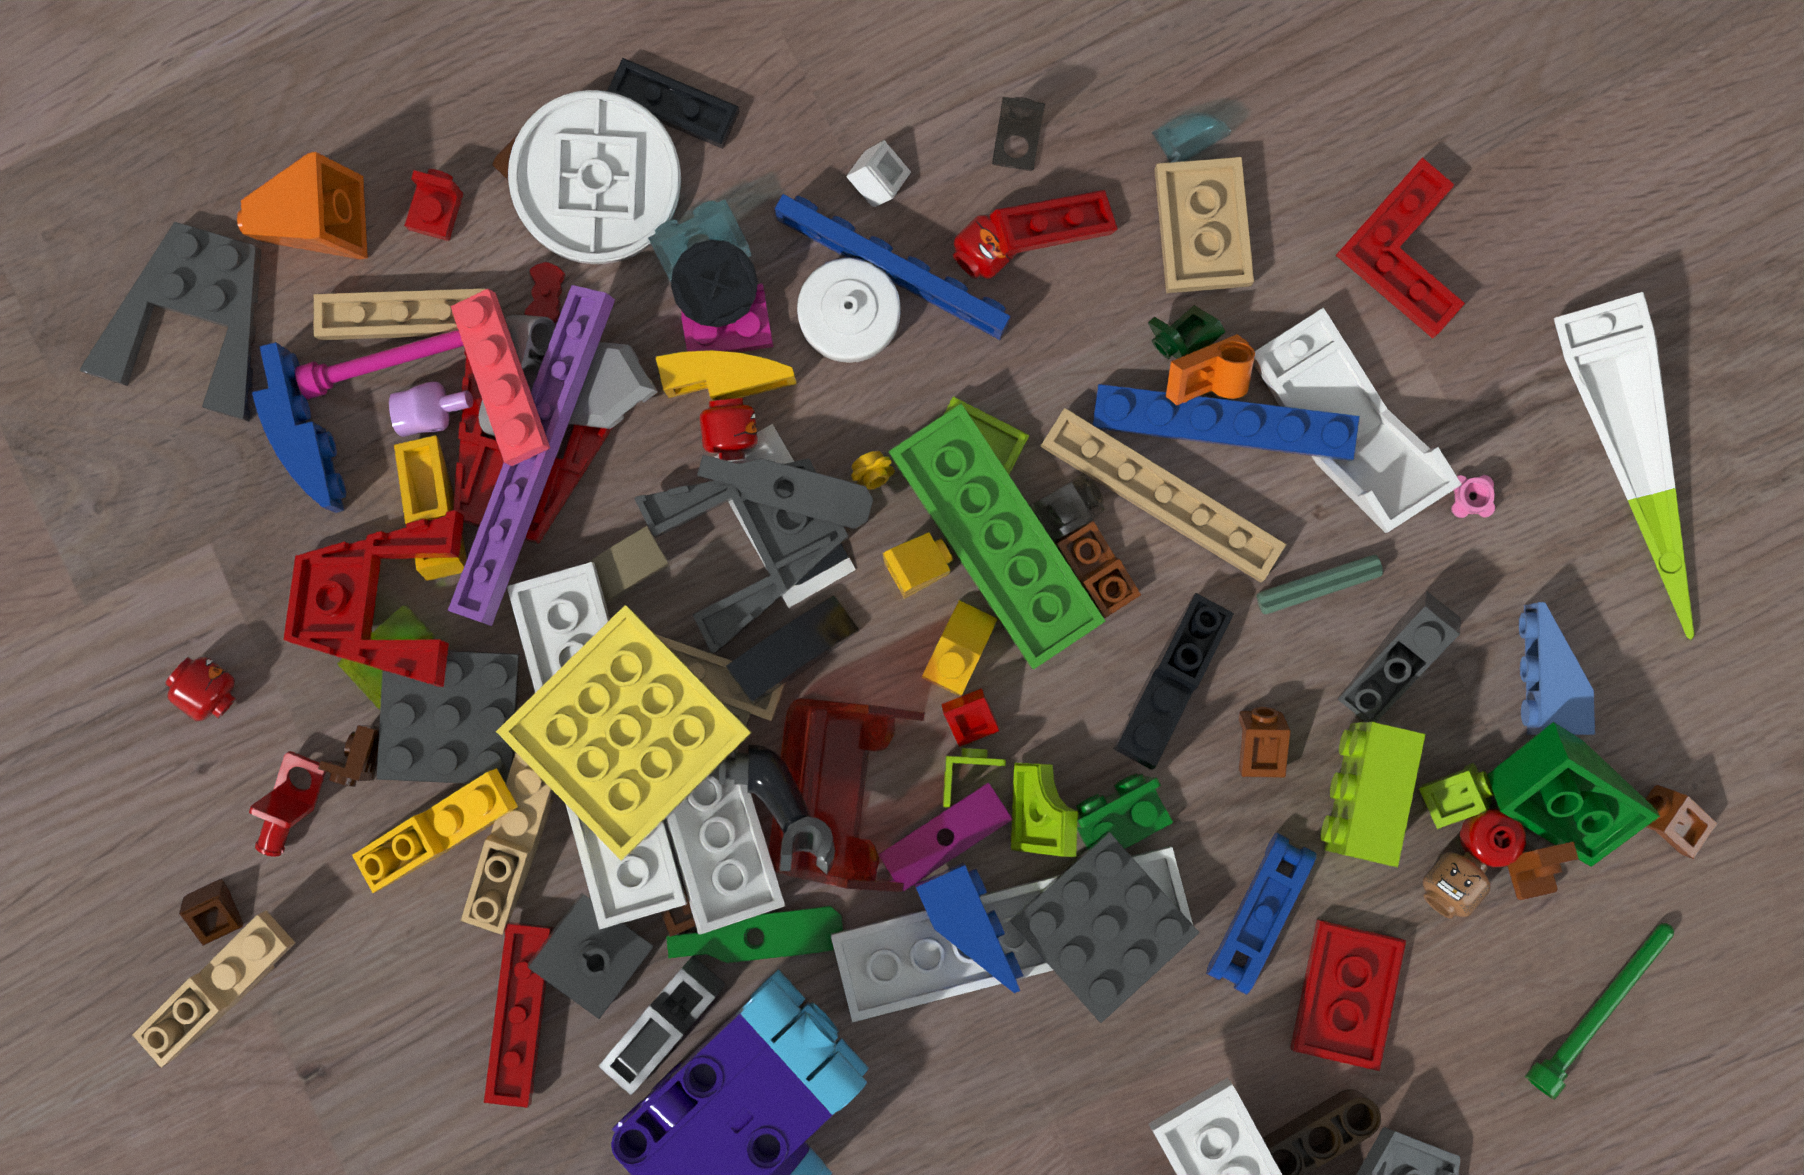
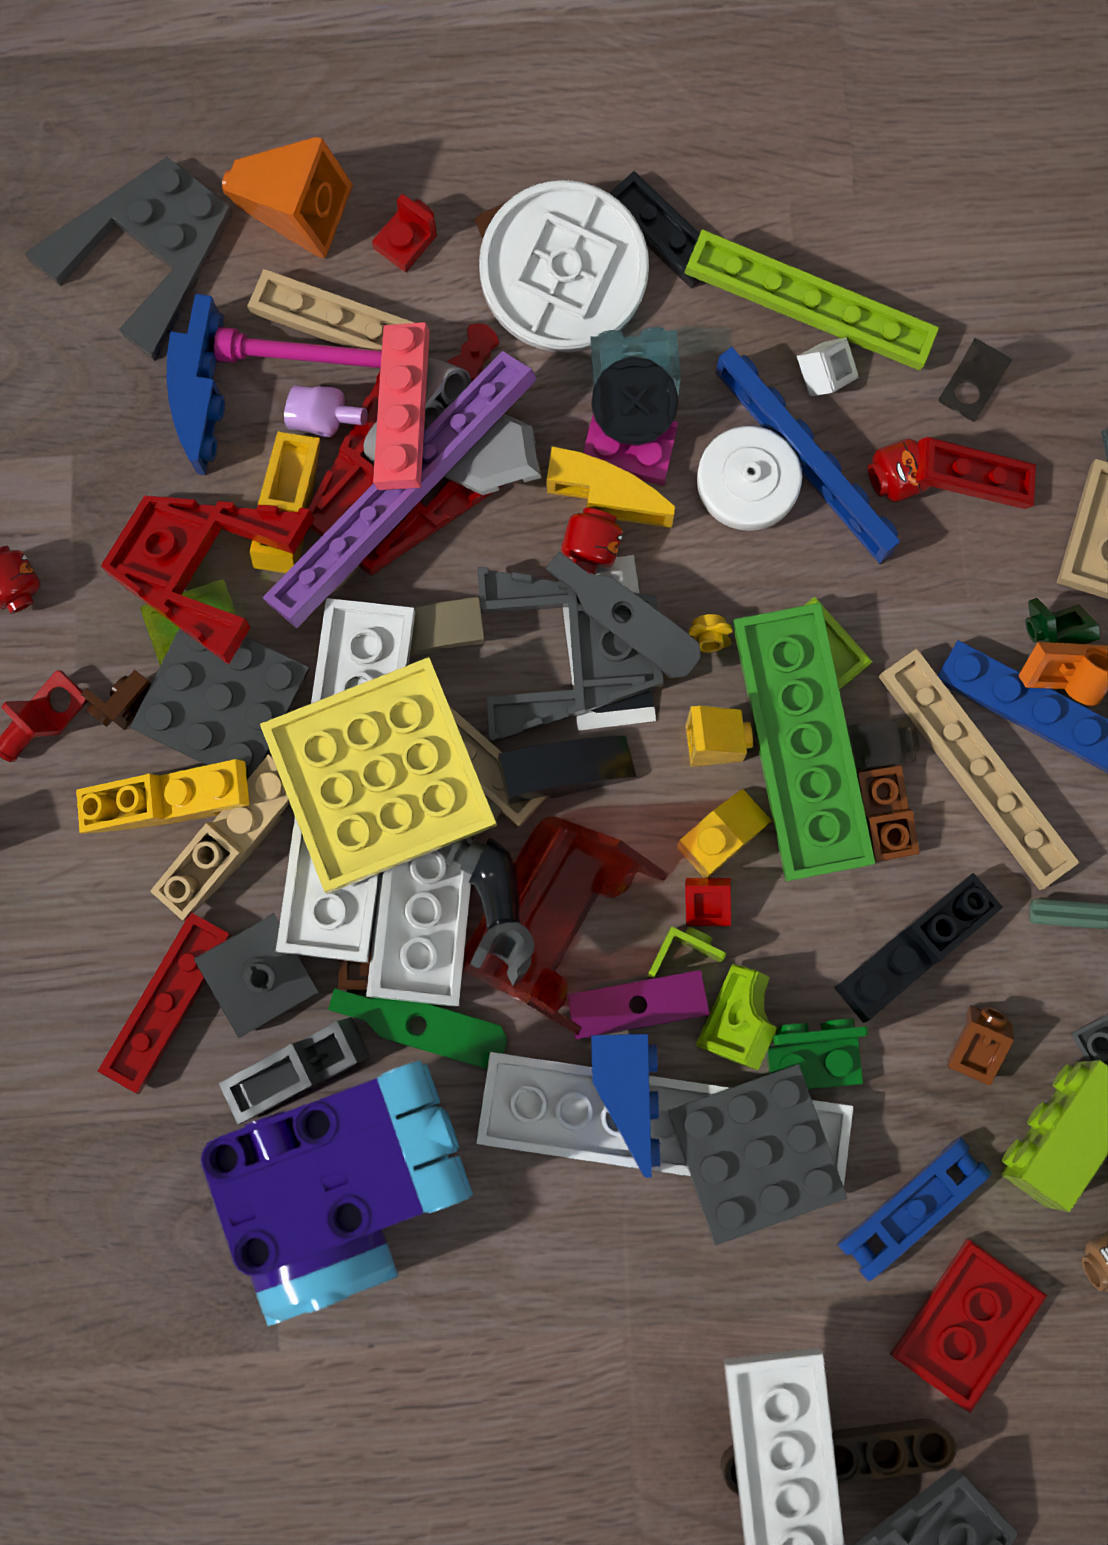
camera: 25 degrees right, 5 degrees down
(837, 118) = (811, 300): none -> lime plate

